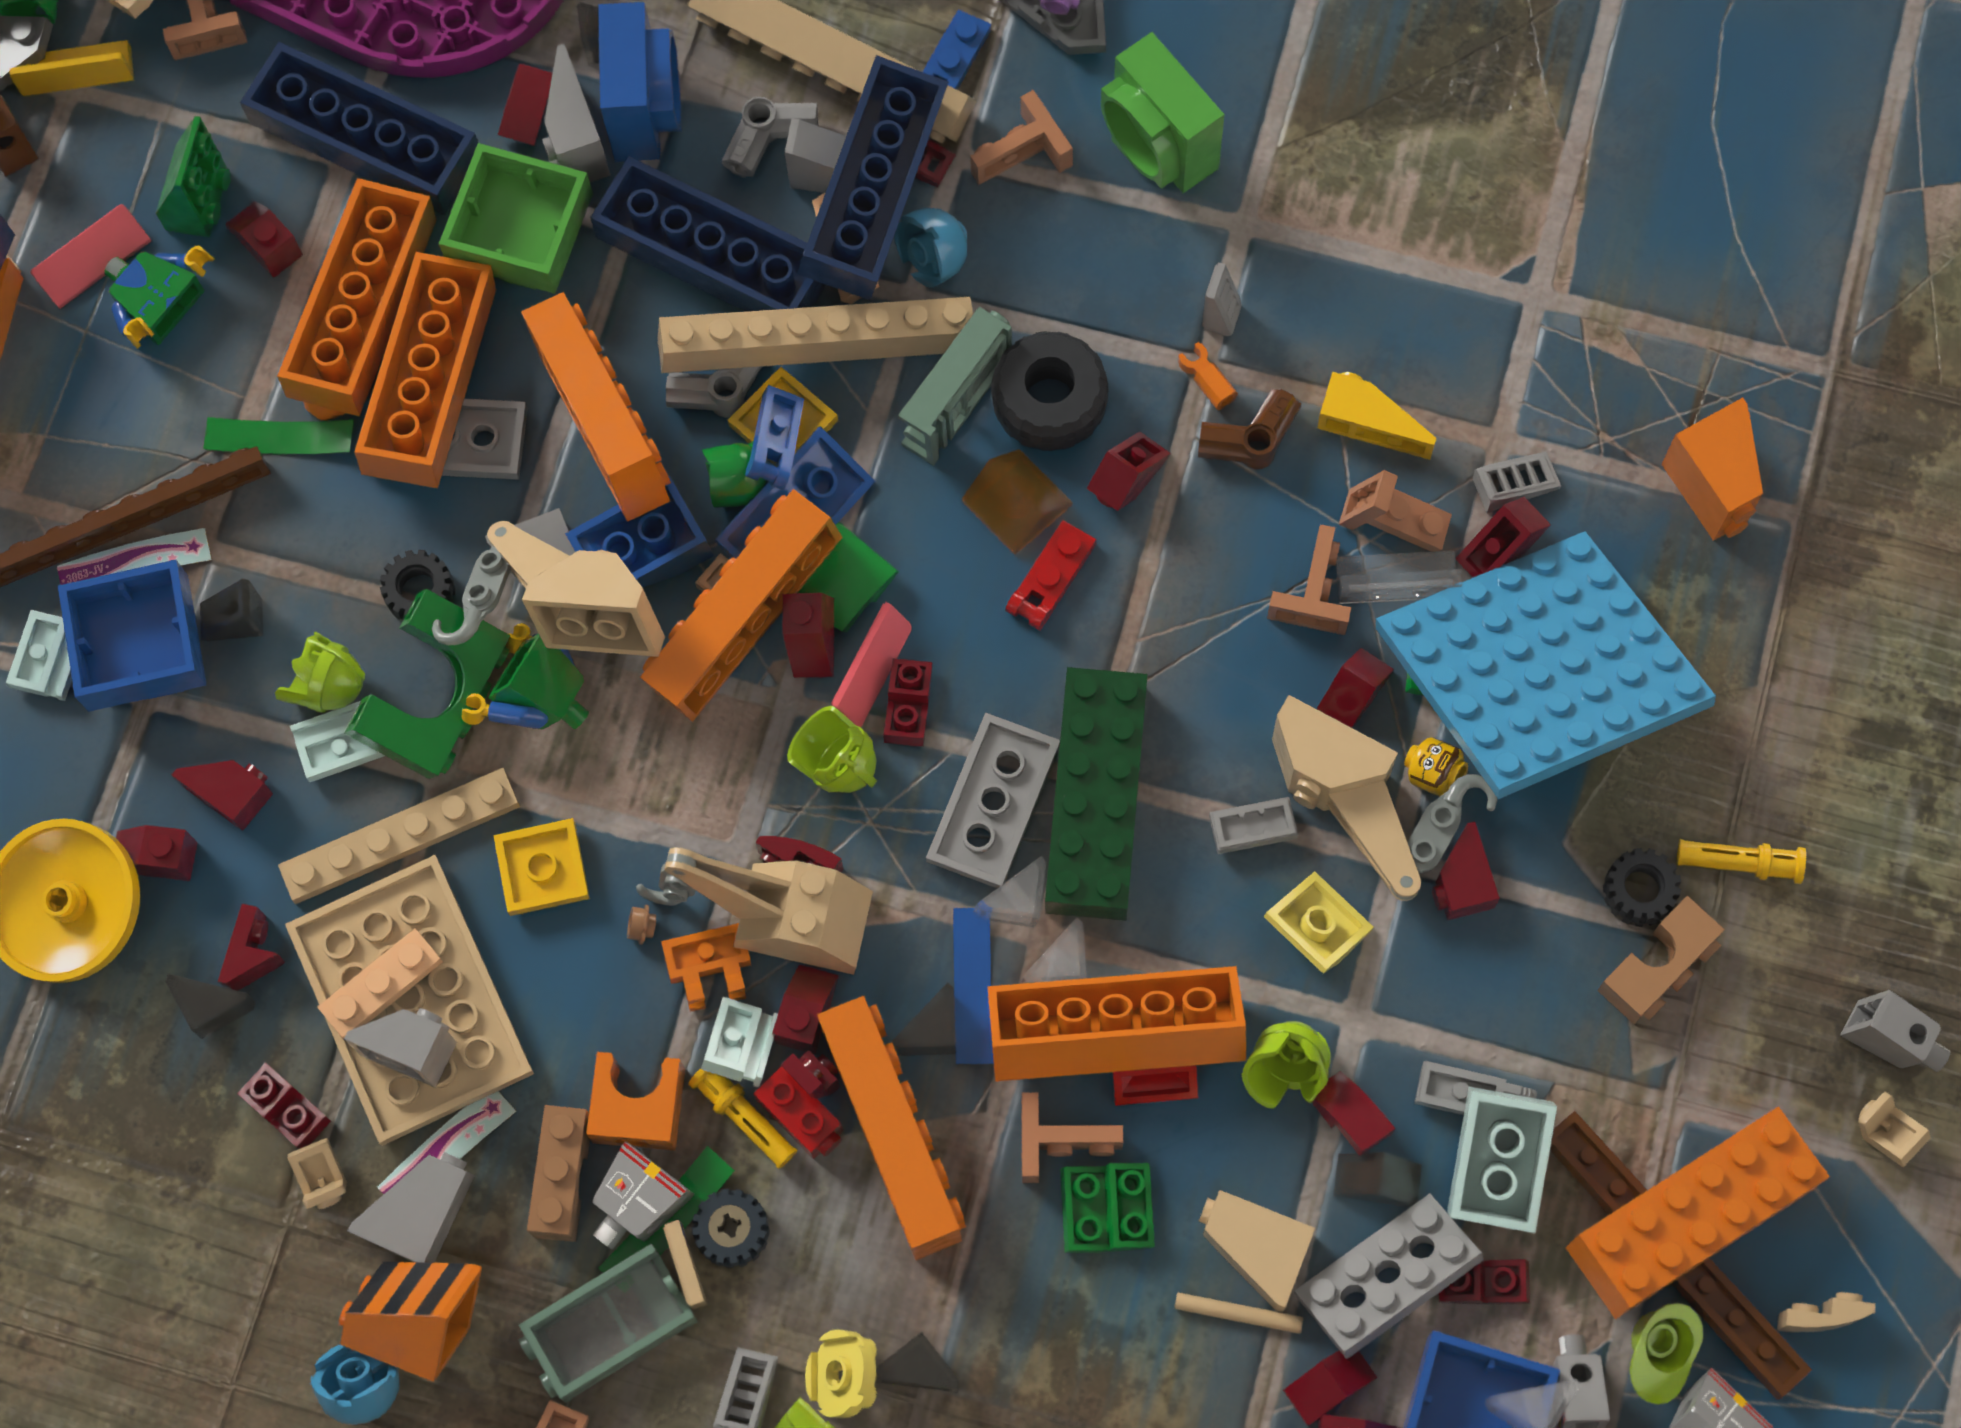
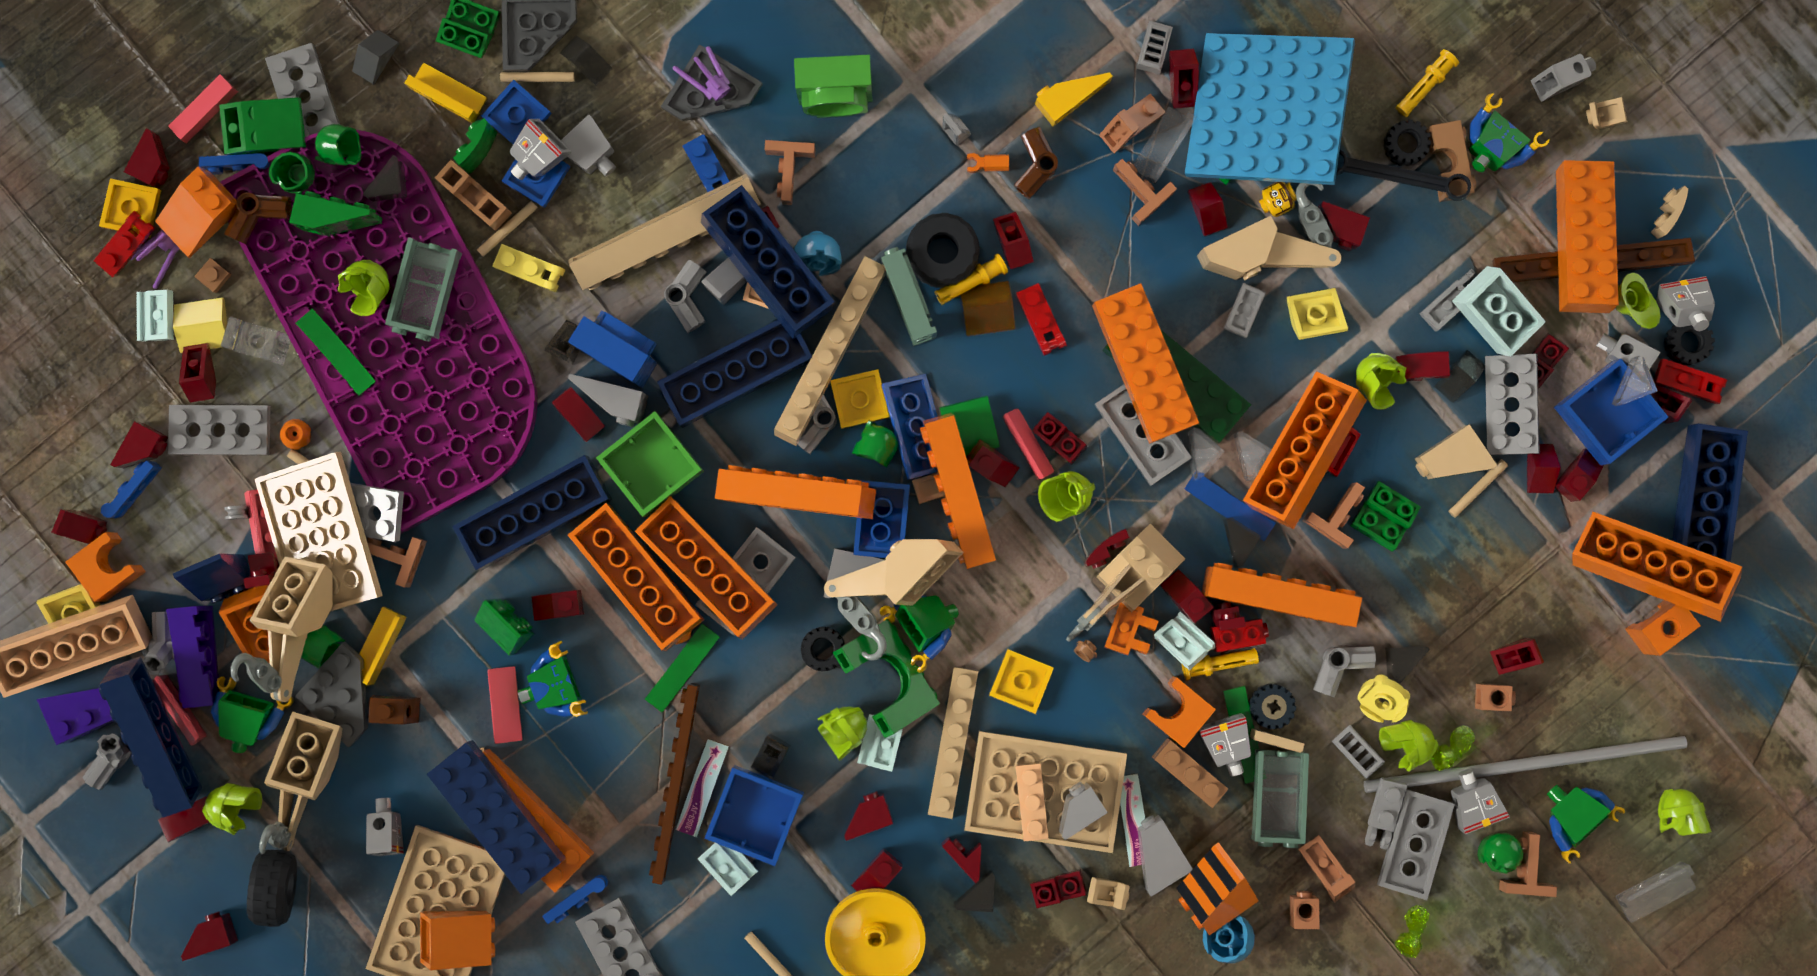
camera: 55 degrees left, 15 degrees up
(775, 437) = (876, 411): blue plate -> none
(873, 1293) = (1352, 658): none -> light grey piece
(1054, 459) = (981, 274): none -> yellow pin
(1076, 723) = (1145, 363): none -> orange brick
(1585, 896) = (1403, 176): none -> black piece
(1736, 1004) = (1497, 141): none -> torso

